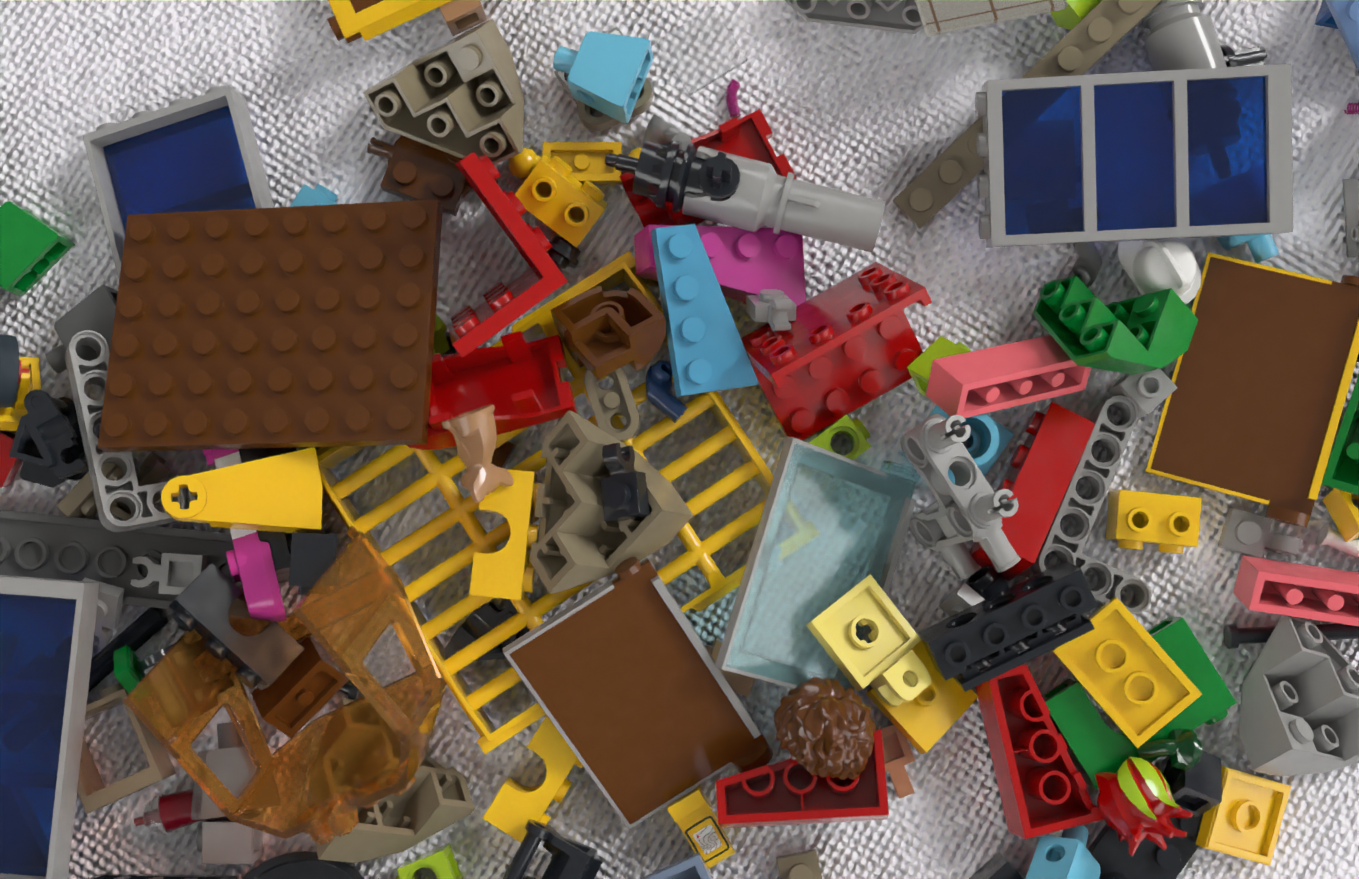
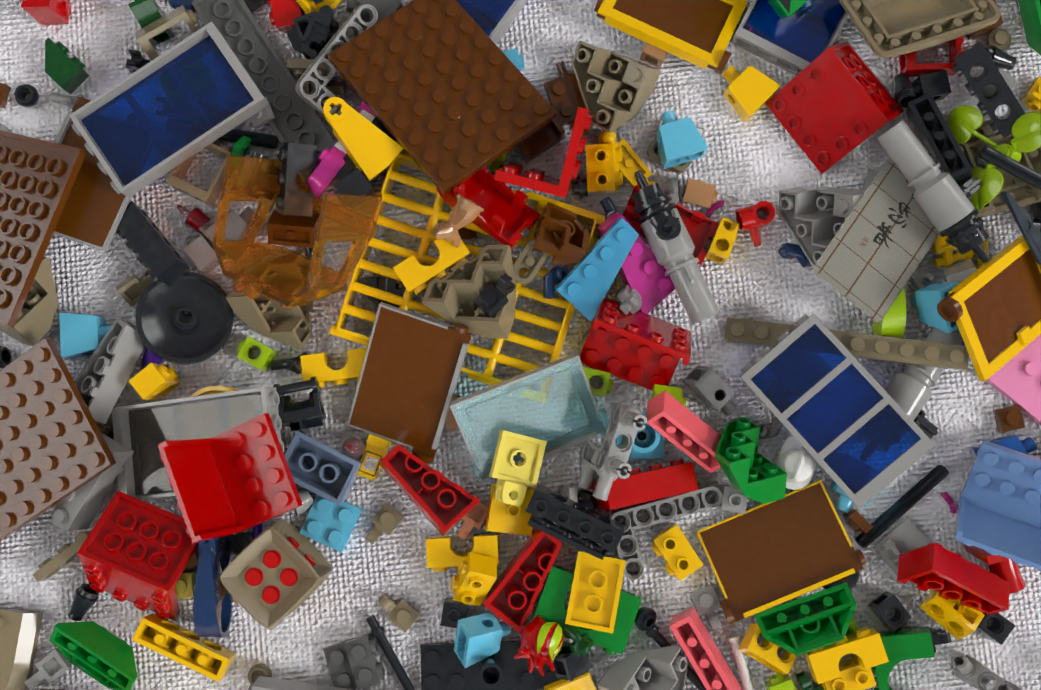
camera: 45 degrees right, 0 degrees up
(173, 573) = (300, 132): light grey plate -> none
(456, 253) = (541, 140): none -> reddish brown panel
(478, 844) = (287, 364): none -> black bar
(619, 237) = (608, 207): none -> dark blue arm
(666, 846) = (352, 447): none -> clear piece
(698, 102) = (699, 193): none -> medium nougat brick
(784, 66) = (749, 220): none -> red piece
(788, 122) = (723, 241): none -> yellow leg
(826, 728) = (460, 474): reddish brown hair -> none
(875, 41) = (793, 250): none -> dark blue arm
(911, 839) = (442, 555): none -> yellow arch
(973, 299) = (710, 389): none -> dark grey torso
(979, 823) = (474, 579): none -> yellow brick
(1210, 632) = (645, 618): none -> black plate
(1300, 250) = (857, 522): none -> reddish brown plate
(1323, 176) = (900, 507): none -> black axle

